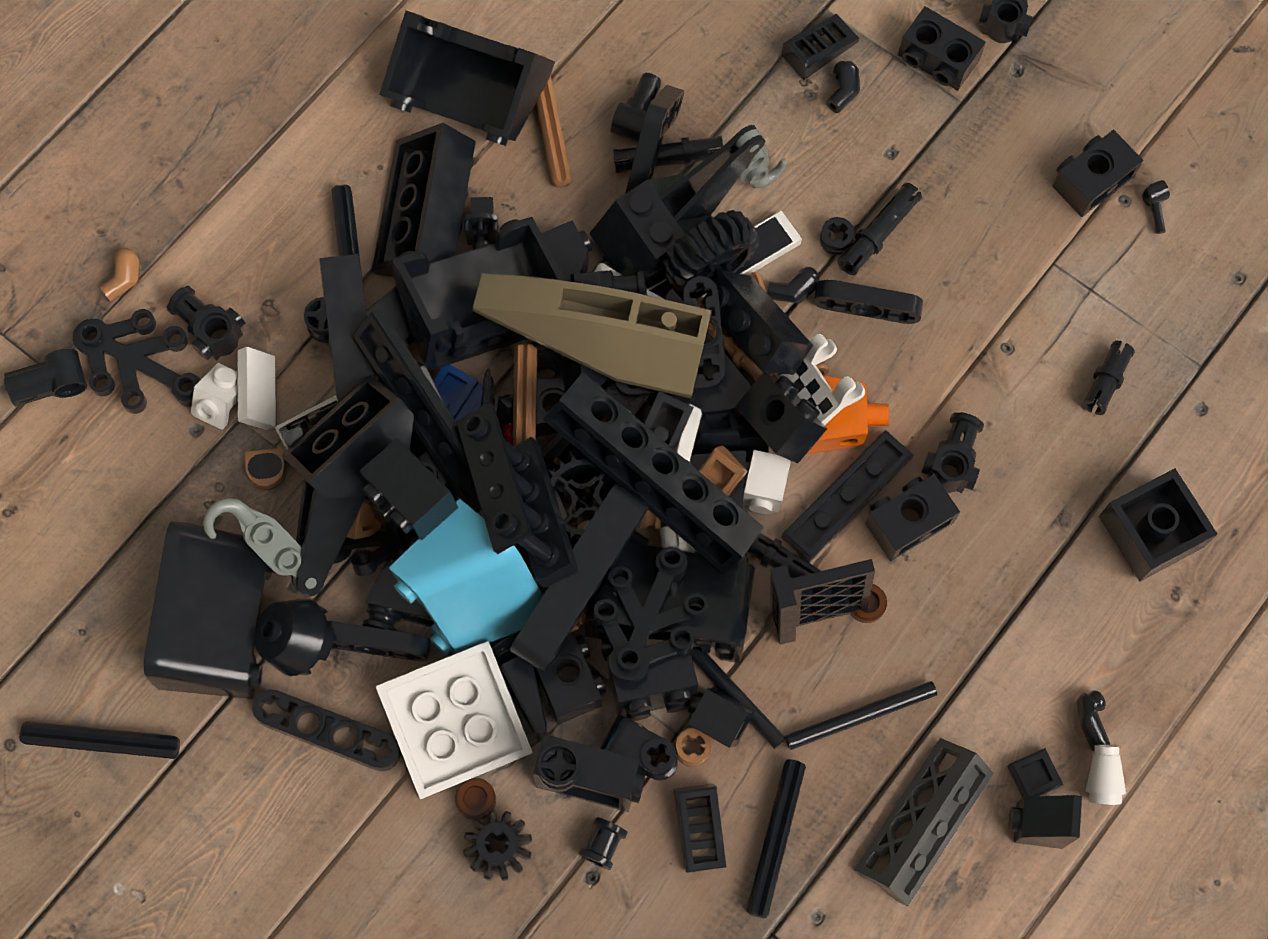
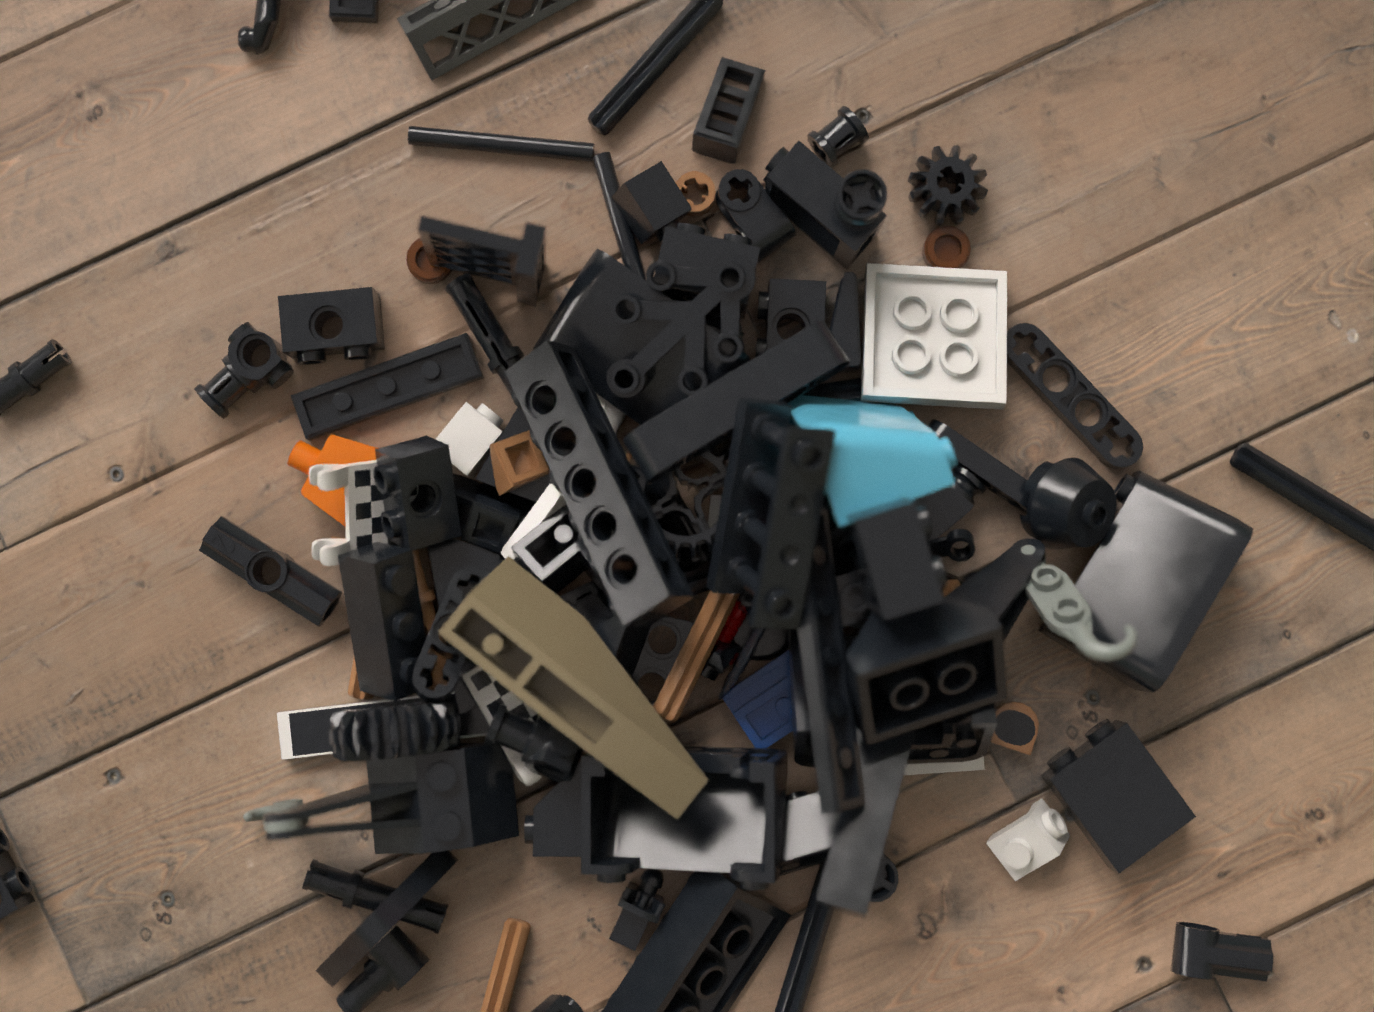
camera: 150 degrees left, 15 degrees up
(132, 357) = (1112, 935): black plant -> none
(168, 452) = (1117, 794): none -> black brick
(205, 320) = (1011, 938): black connector -> none
(256, 388) = (986, 825): white tile -> none
(797, 289) = (315, 653): black arm -> none
(805, 65) = (156, 947): black slope -> none
(836, 225) = (229, 712): black bush -> none
(849, 84) = (109, 896): black arm -> none
(868, 301) = (242, 598): black beam -> none
(871, 239) = (196, 674): black pin -> none
(882, 328) = (246, 556): none -> black piece
(1157, 524) = (70, 181): black brick -> none

